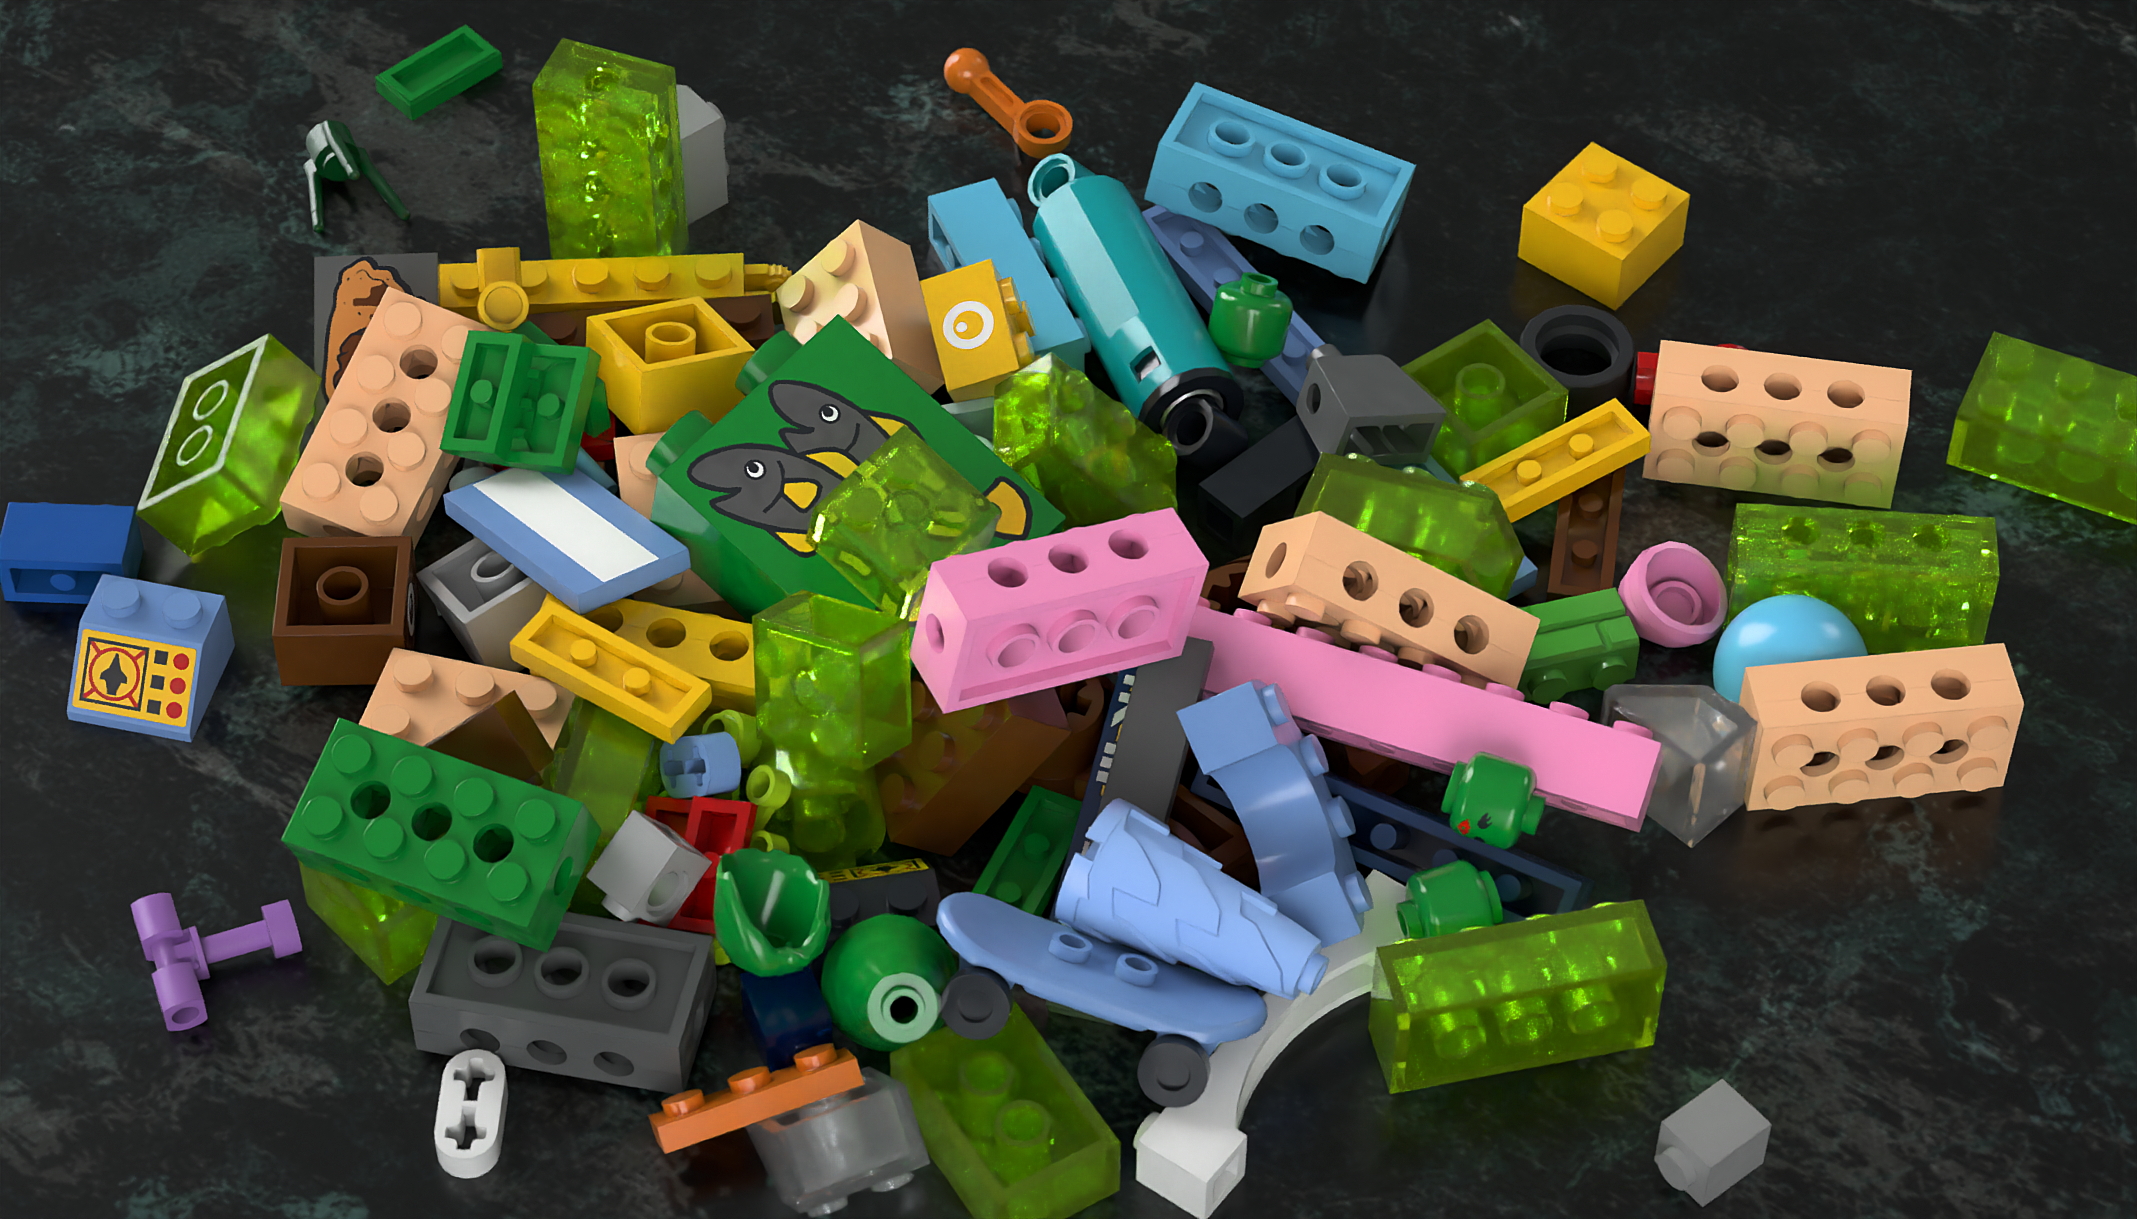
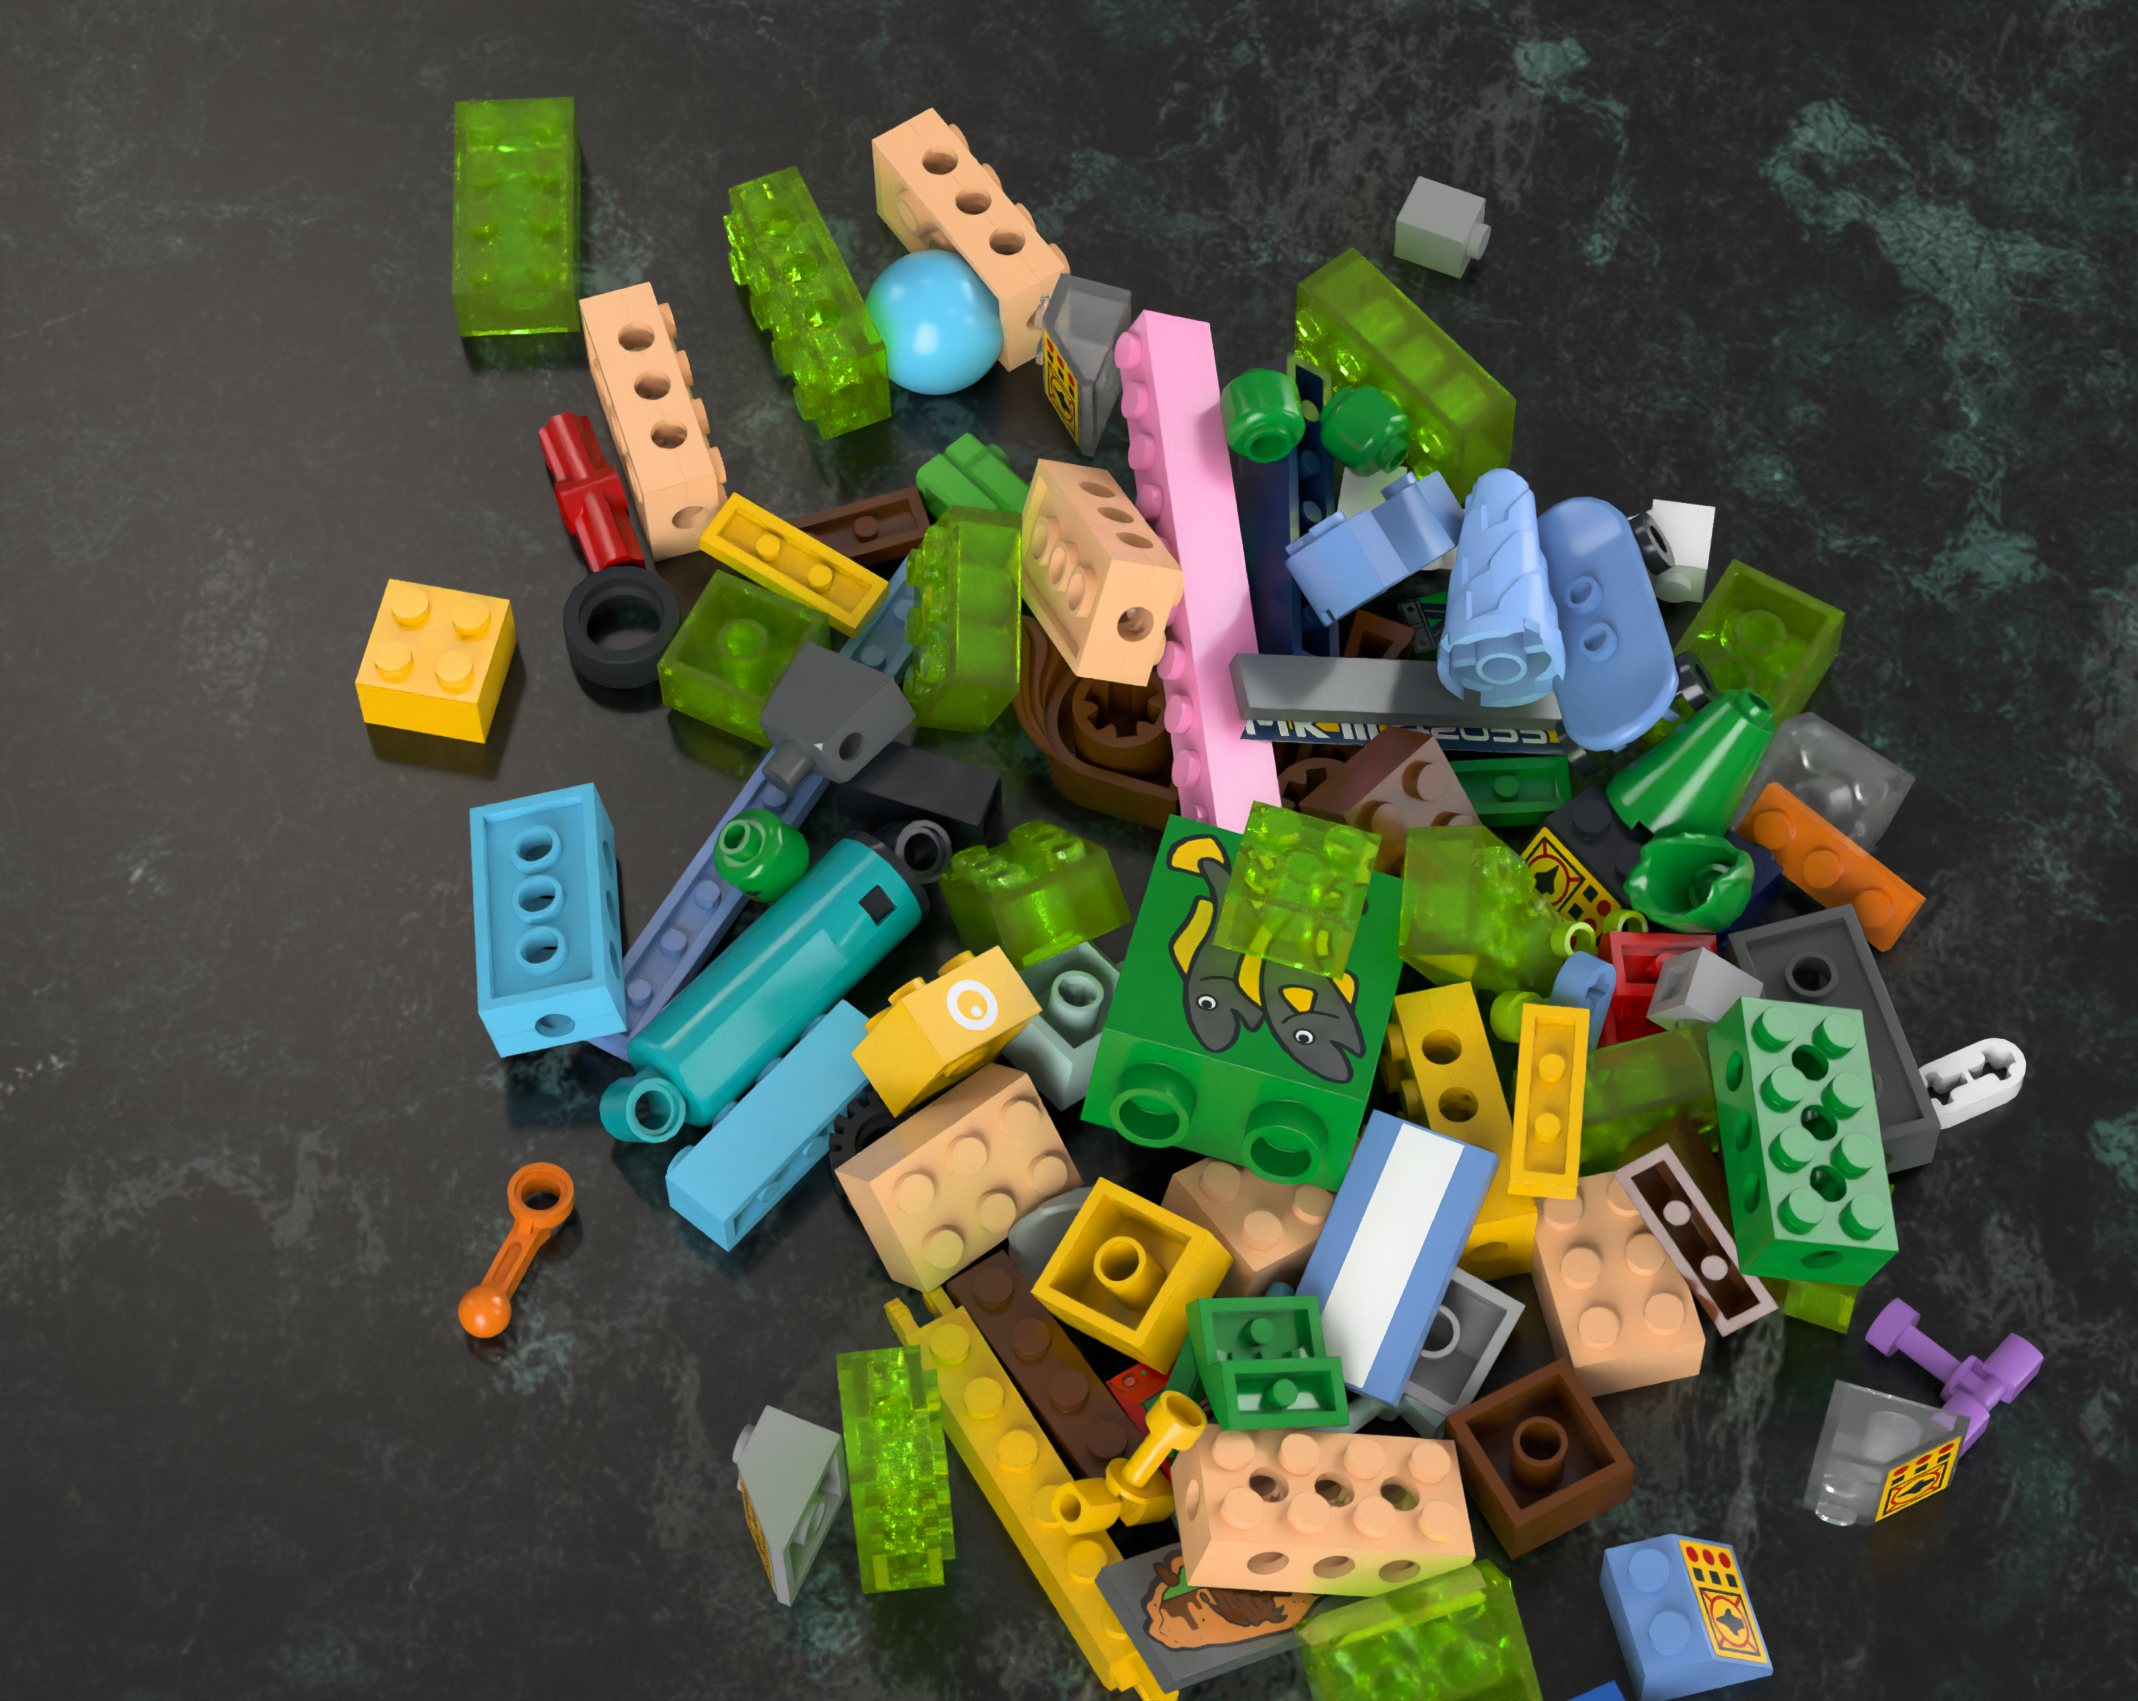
camera: 115 degrees left, 10 degrees up
(165, 820) = (1880, 1455): none -> clear slope
(1057, 609) = (1339, 707): bright pink brick -> none
(1674, 595) = (897, 436): bright pink hat -> none

